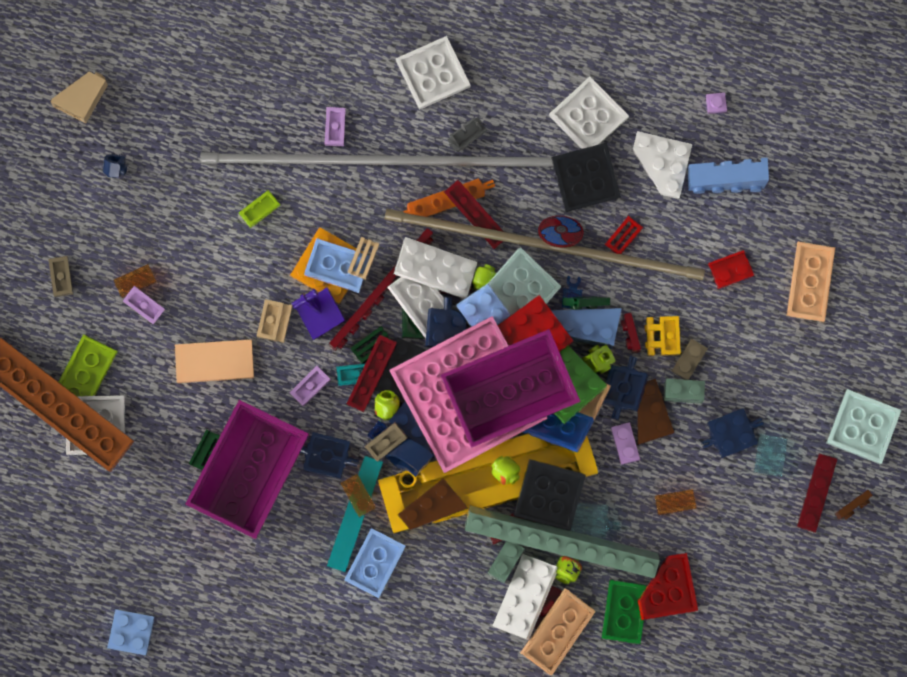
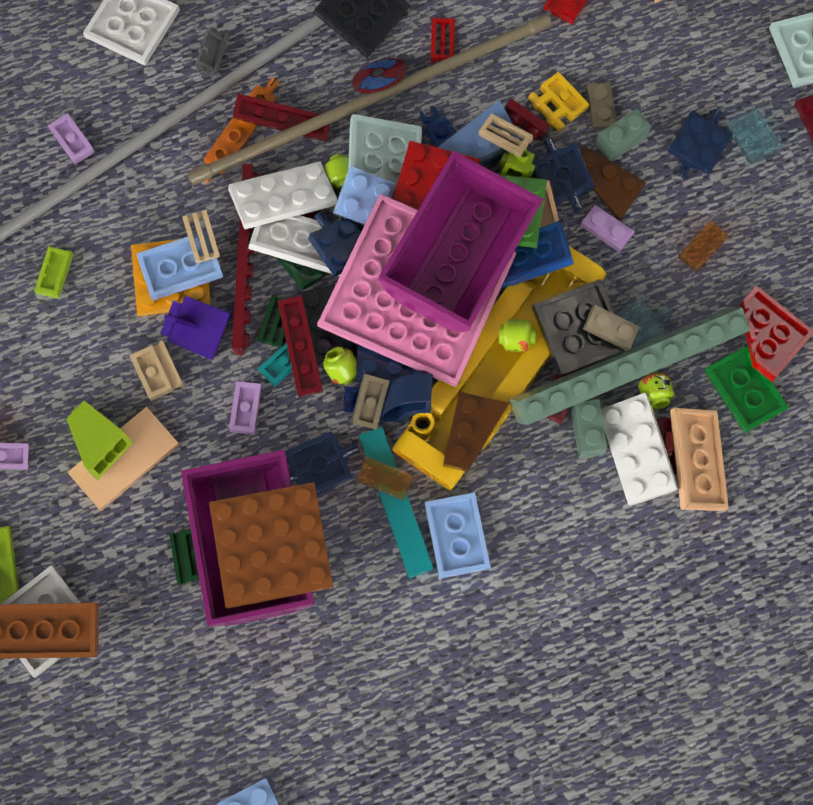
camera: 35 degrees left, 5 degrees down
(206, 338) = (96, 439): none -> lime slope
(256, 485) = (270, 545): none -> dark orange plate
(567, 510) = (611, 327): none -> dark tan plate
(590, 302) = (459, 118): dark green plate -> none
(609, 351) = (503, 138): none -> tan tile

